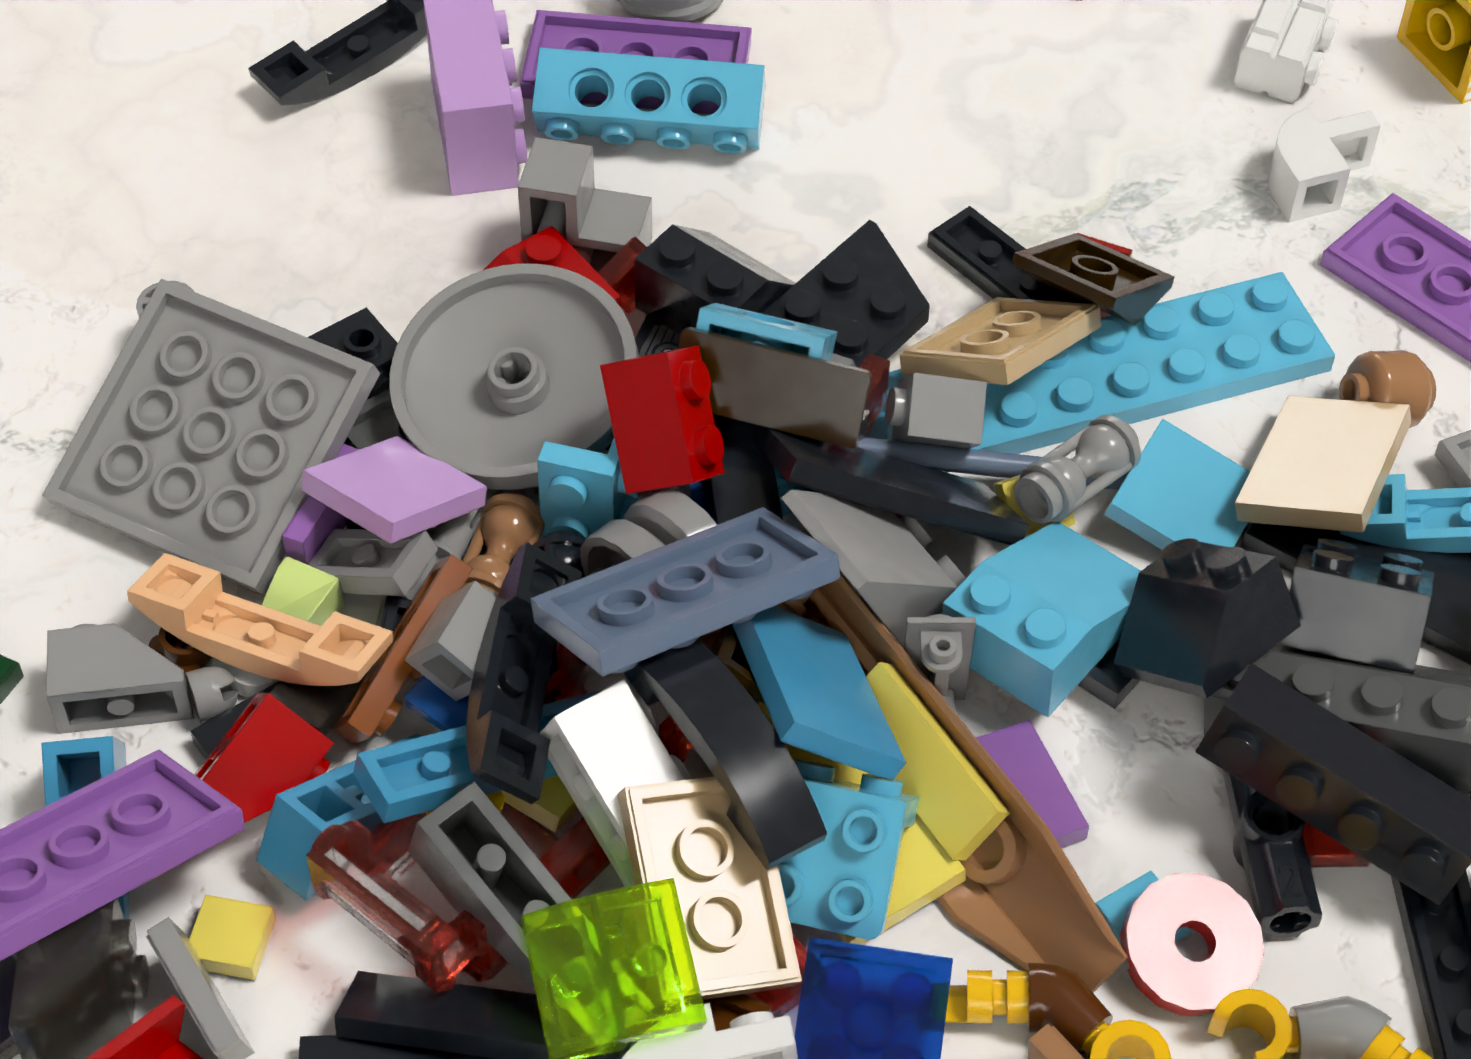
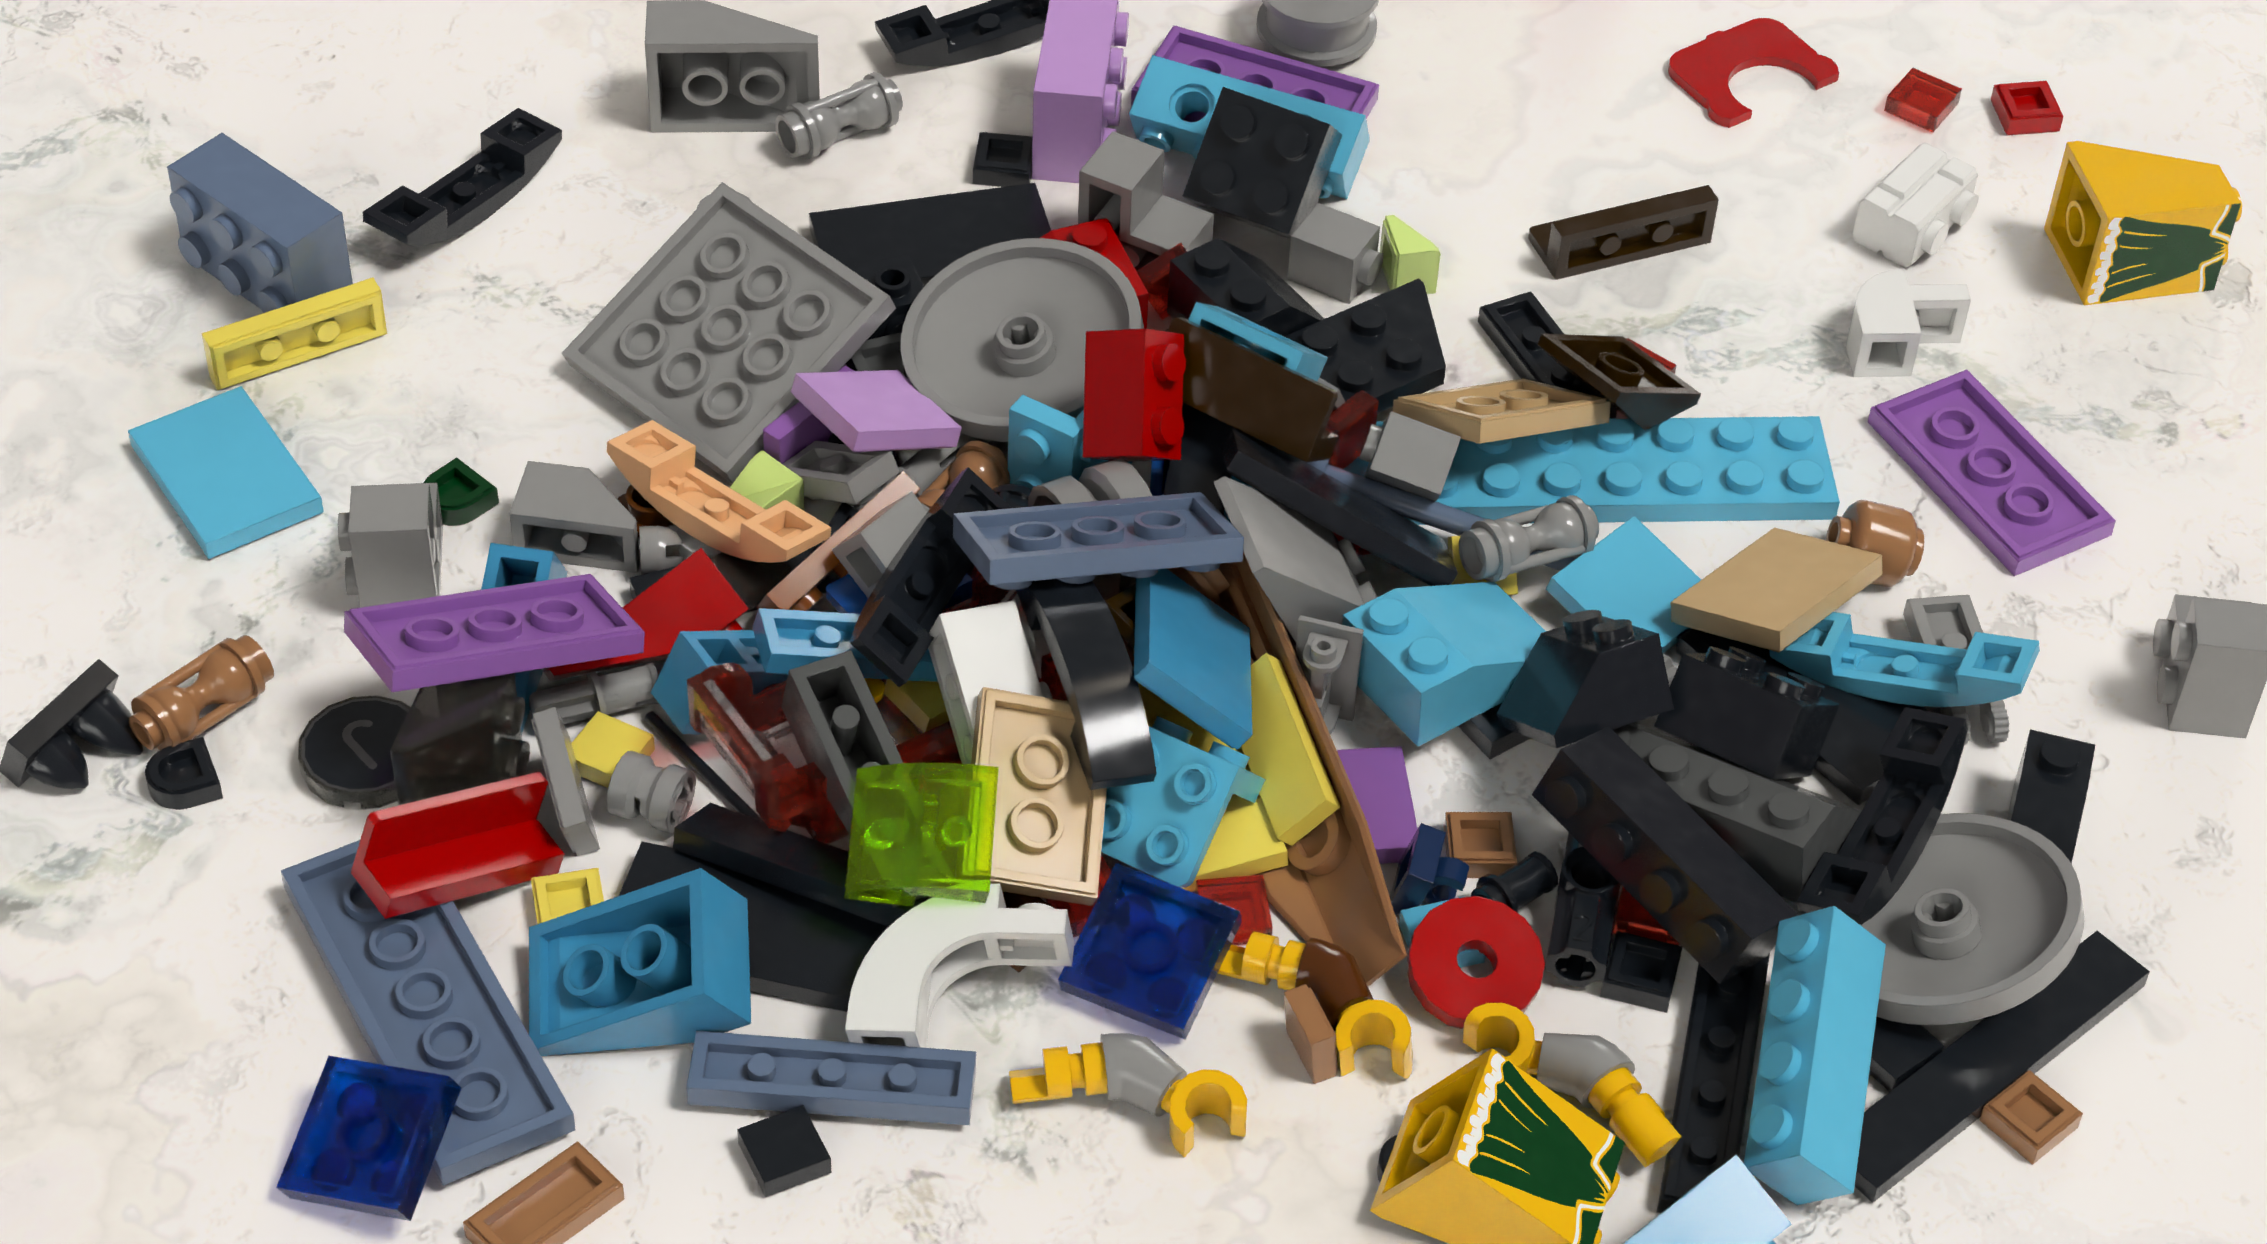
camera: 15 degrees right, 5 degrees down
(121, 152) = (723, 68): none -> light grey slope
(195, 878) = (601, 693): none -> light grey axle
(225, 187) = (818, 124): none -> light grey piece
(293, 976) = (650, 791): none -> light grey wheel
(333, 928) = (700, 766): none -> black axle
(385, 272) = (930, 228): none -> black tile
(419, 183) = (1003, 160): none -> black tile
(681, 136) = (1261, 163): none -> black brick
(775, 209) = (1334, 253): none -> light grey brick
(844, 198) = (1408, 255): none -> yellowish green slope
(933, 933) = (1242, 894): none -> clear red tile
(1031, 125) = (1626, 232): none -> dark brown panel
(1105, 856) = (1425, 874): none -> dark blue tile
(1140, 805) = (1481, 841): none -> medium nougat tile
(1196, 842) = (1520, 882): none -> black pin
(1350, 904) = (1641, 971): none -> black tile

